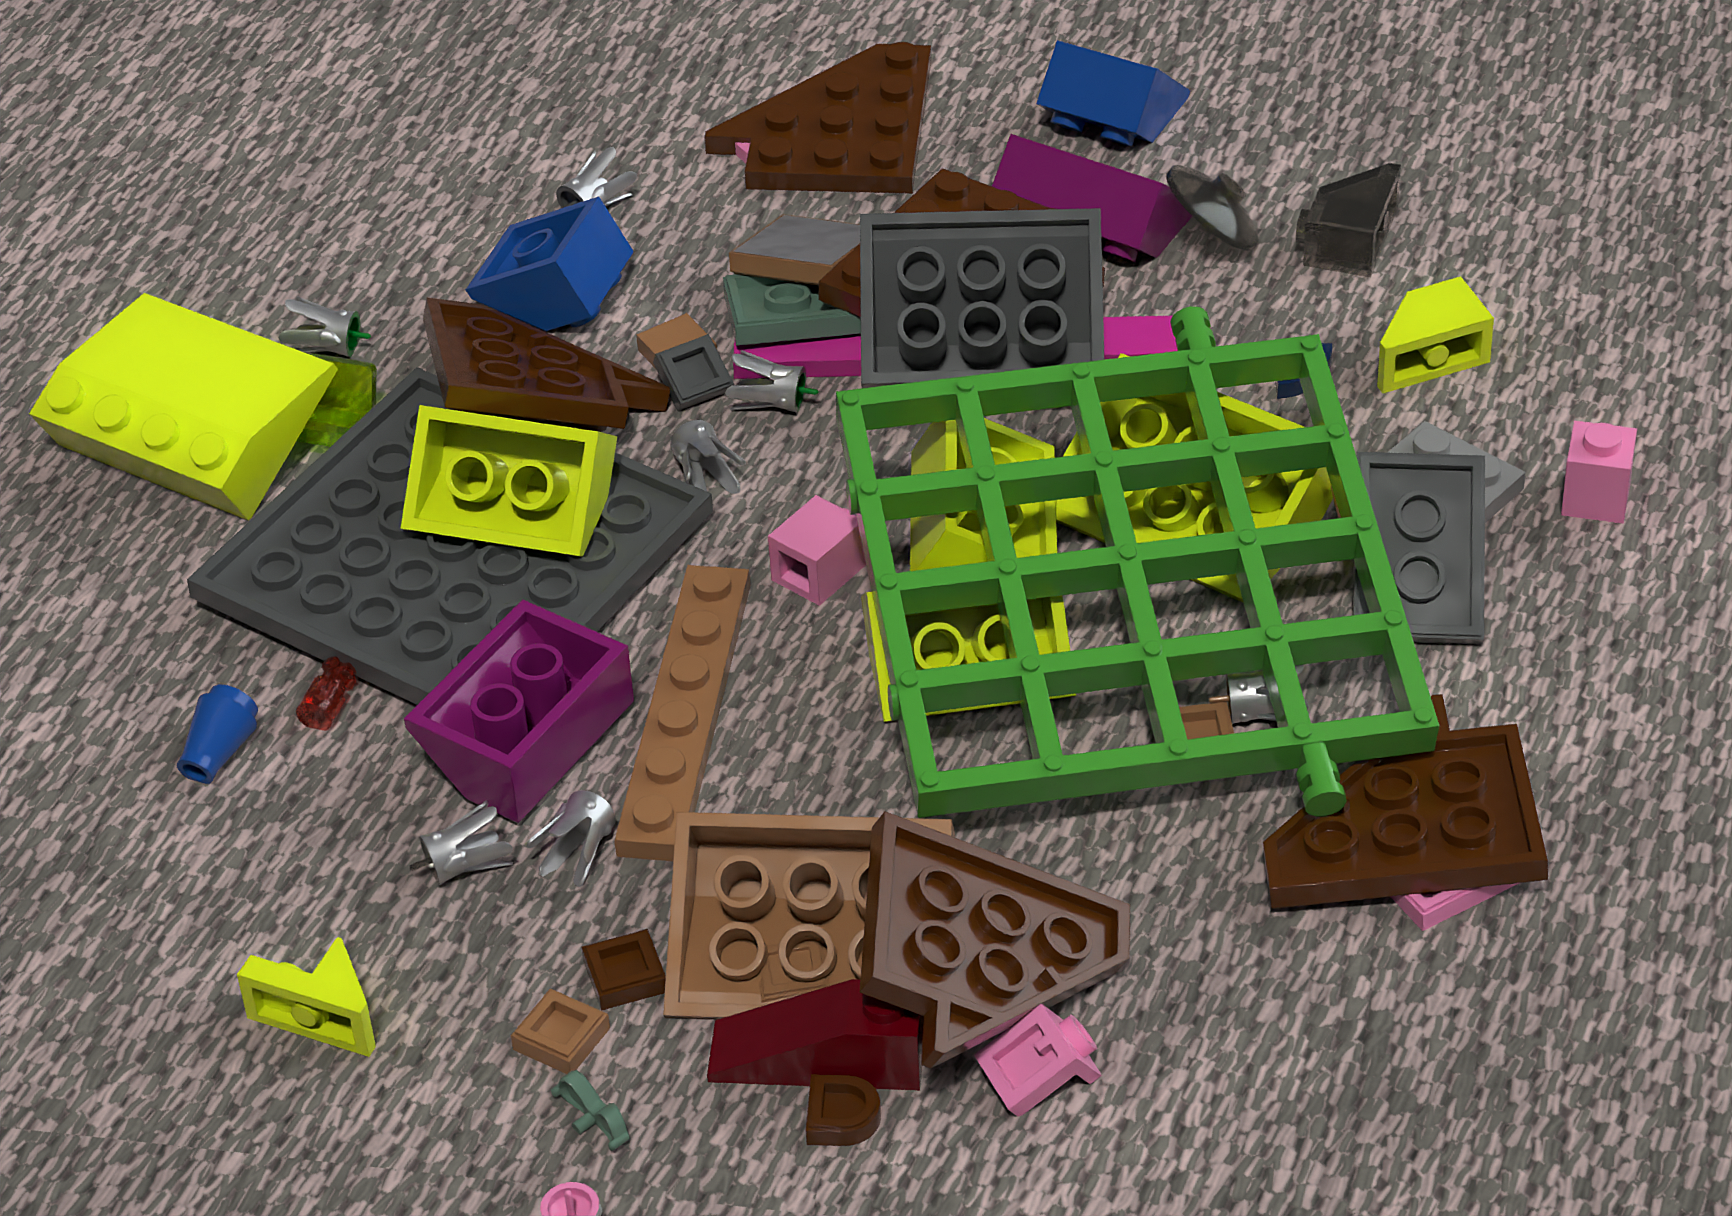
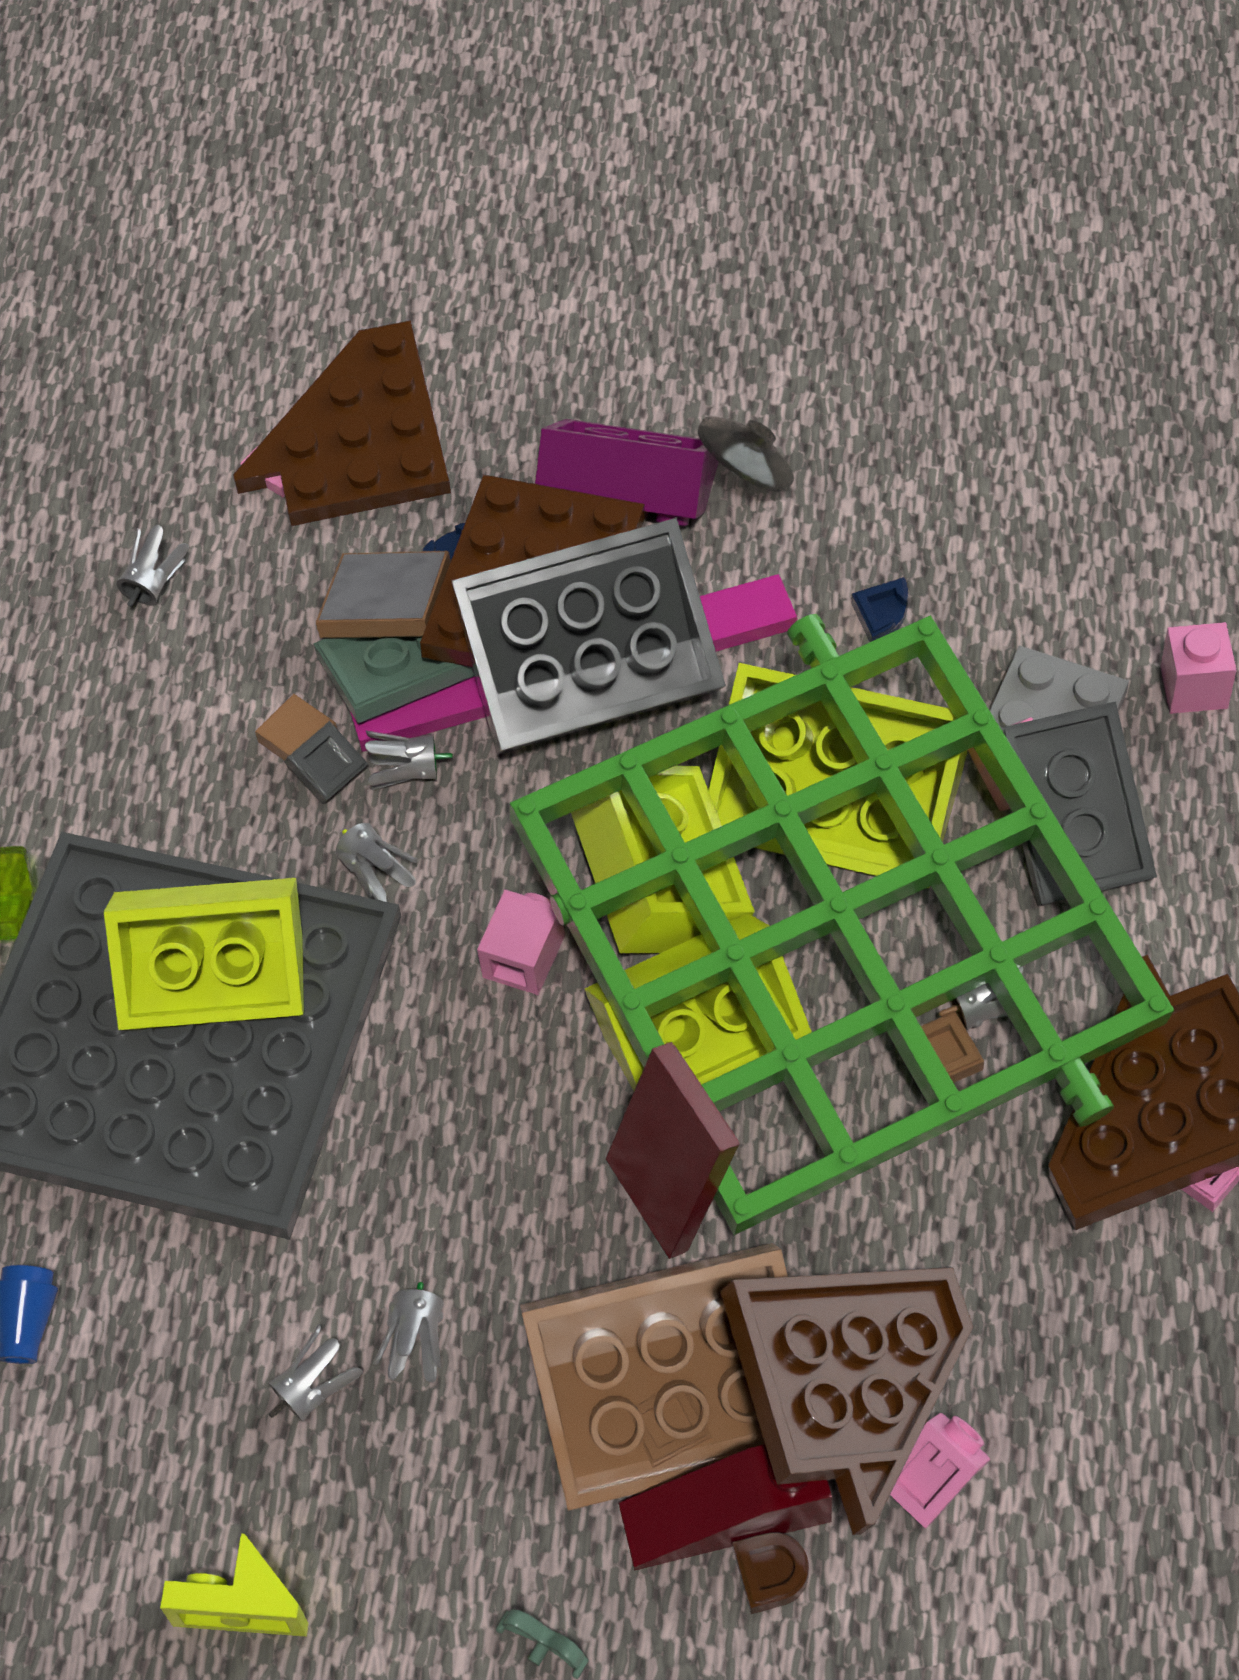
camera: 15 degrees left, 15 degrees up
(326, 694) = (112, 1232): clear red piece -> none
(514, 369) = (167, 811): reddish brown wing -> none
(523, 708) = (314, 1211): magenta slope -> none
(554, 266) = (147, 676): blue slope -> none
(560, 1031) = (479, 1558): medium nougat tile -> none
(624, 969) = (513, 1469): reddish brown tile -> none
(683, 710) = (460, 1160): medium nougat plate -> none
(881, 716) = (671, 1149): none -> dark red tile
(1109, 94) = (601, 344): blue slope -> none
(1350, 221) = (874, 436): clear smoke slope -> none
(1434, 335) = (997, 545): neon yellow slope -> none

